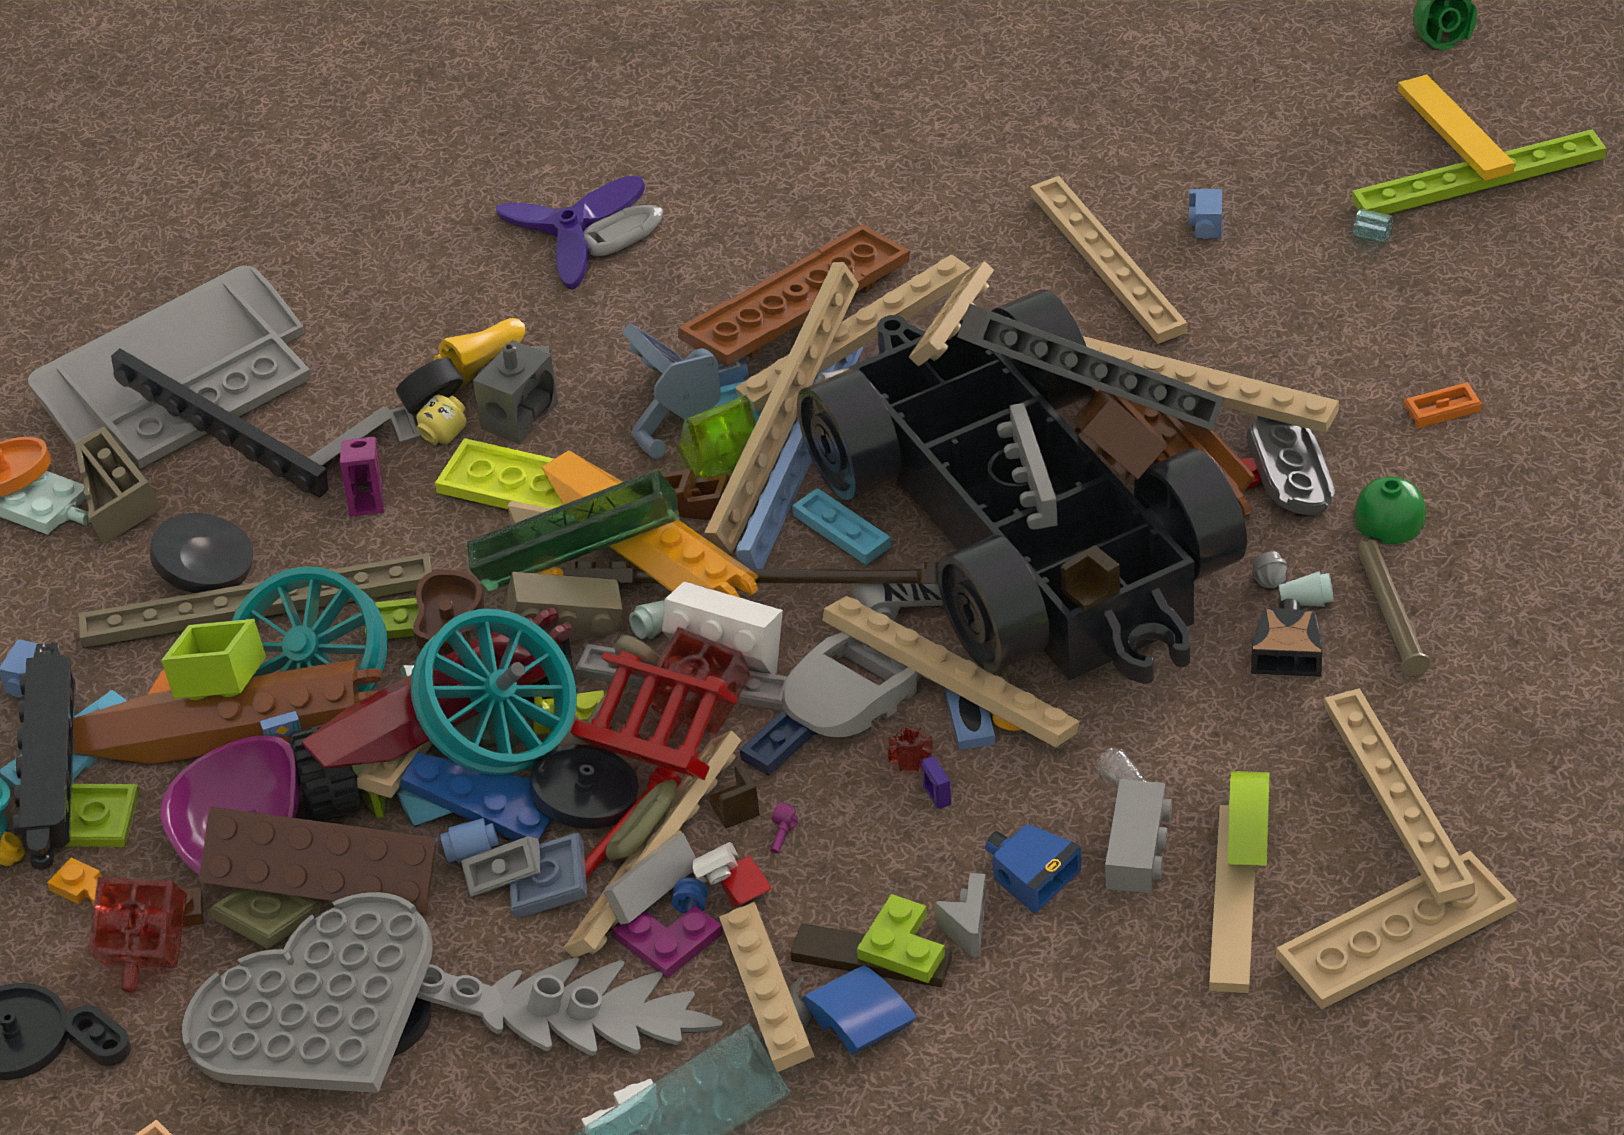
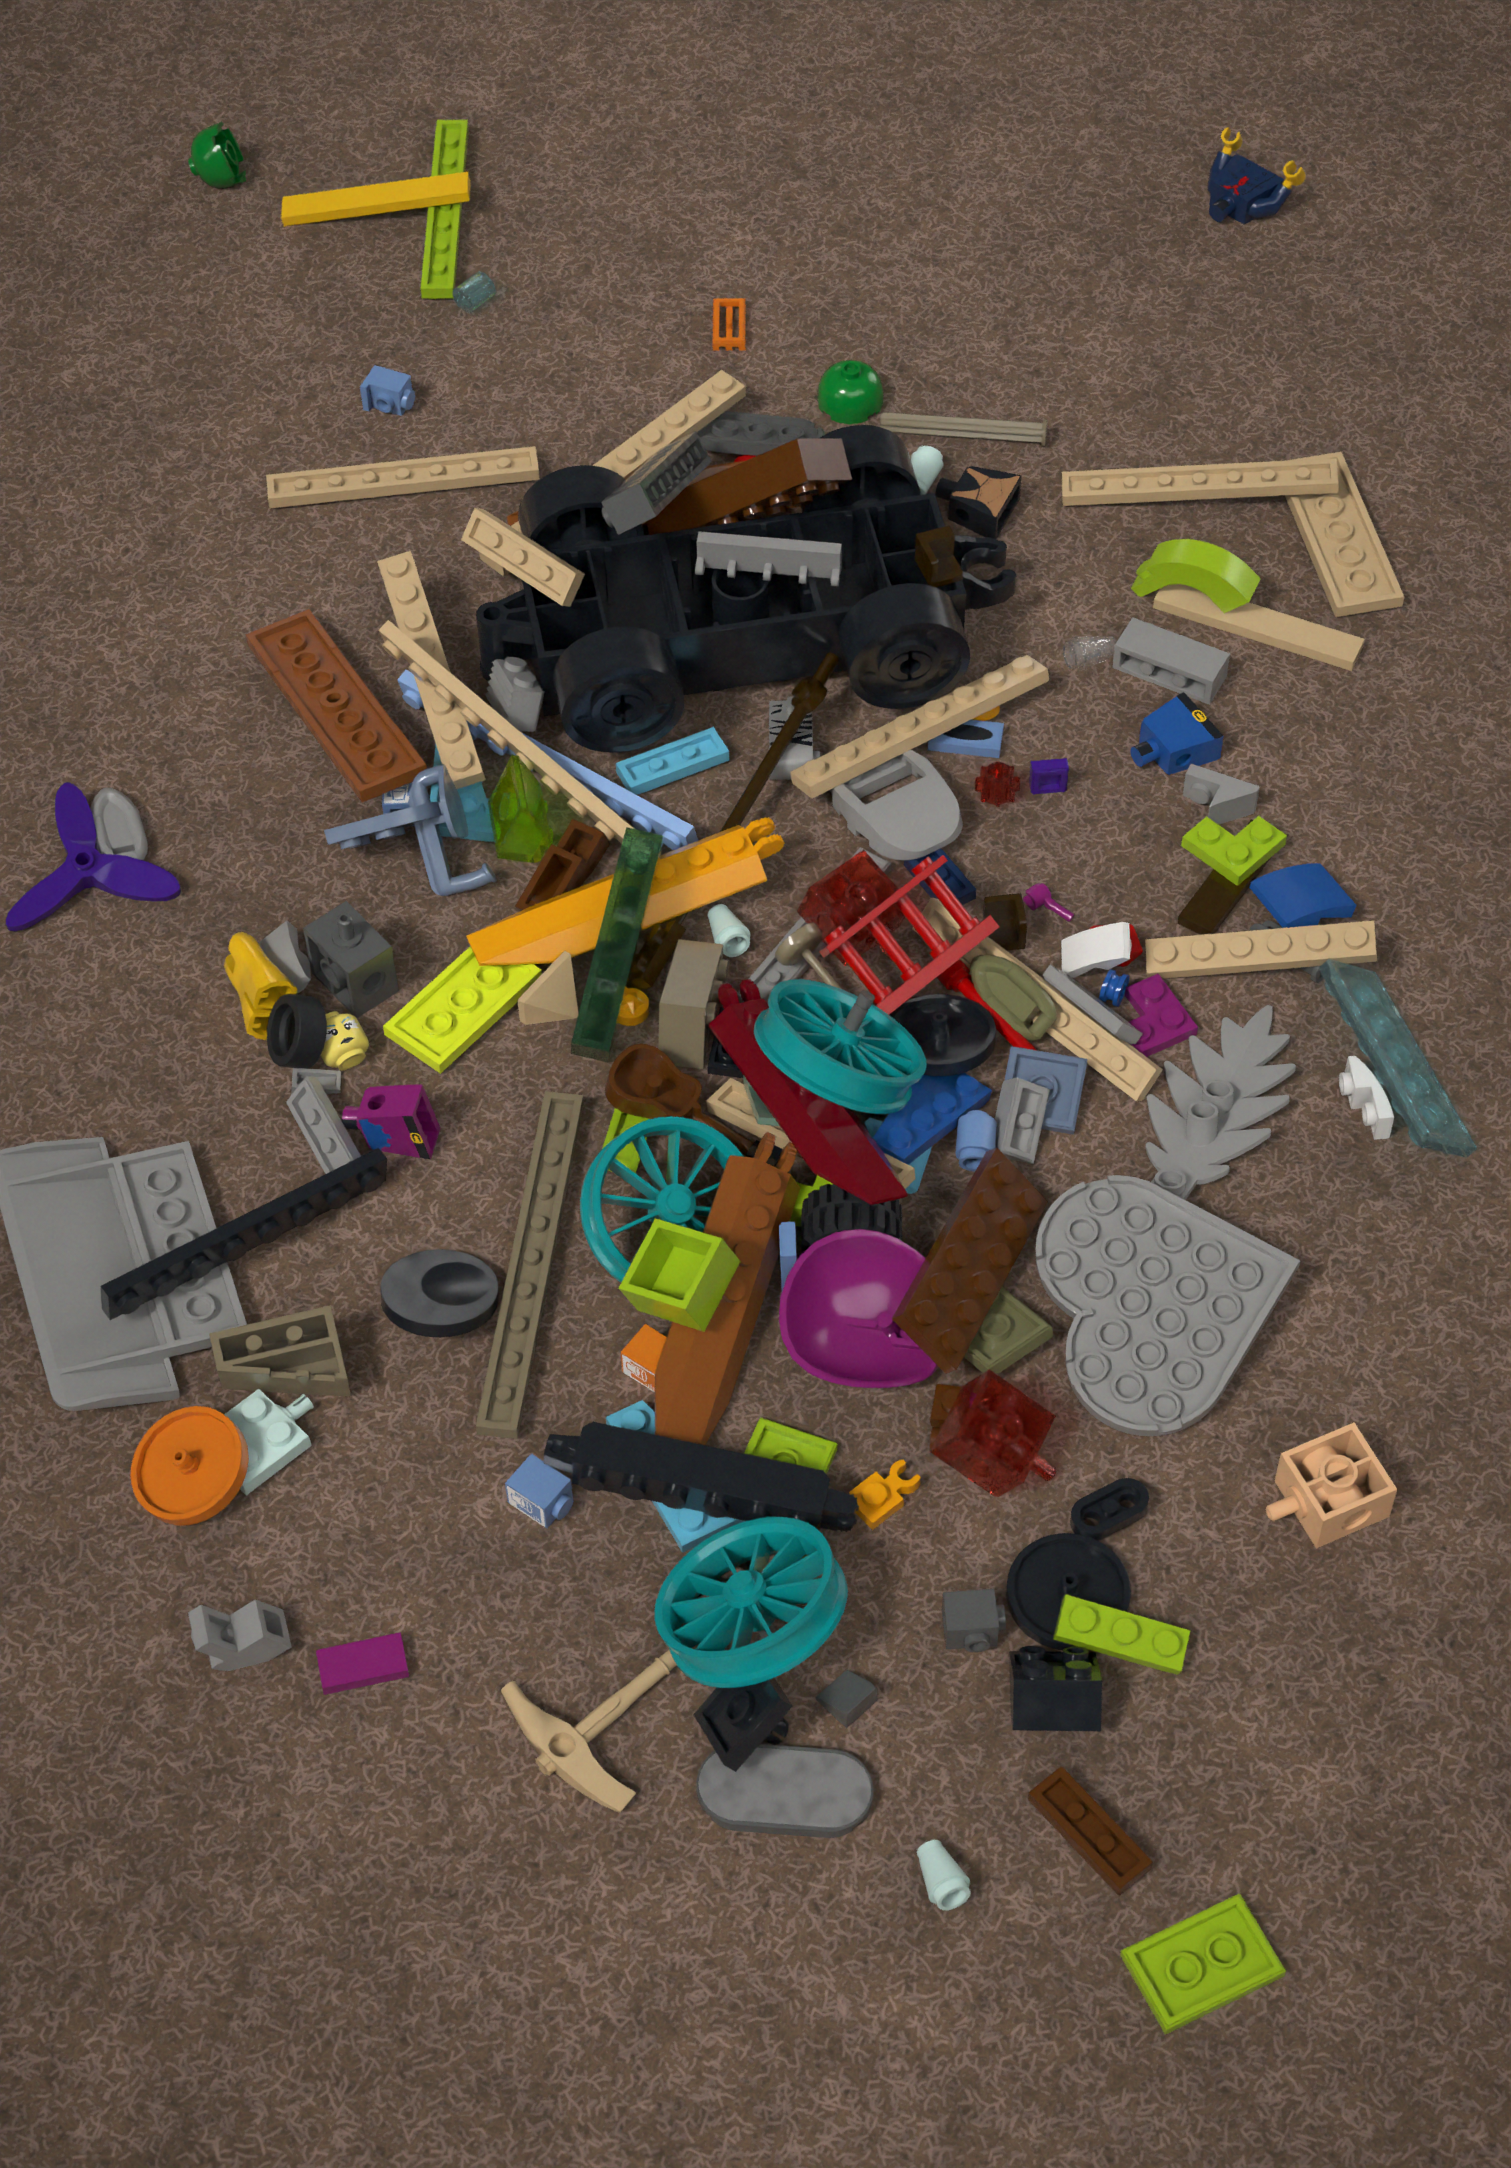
camera: 75 degrees left, 10 degrees up
(727, 620) = (798, 861): white slope -> none

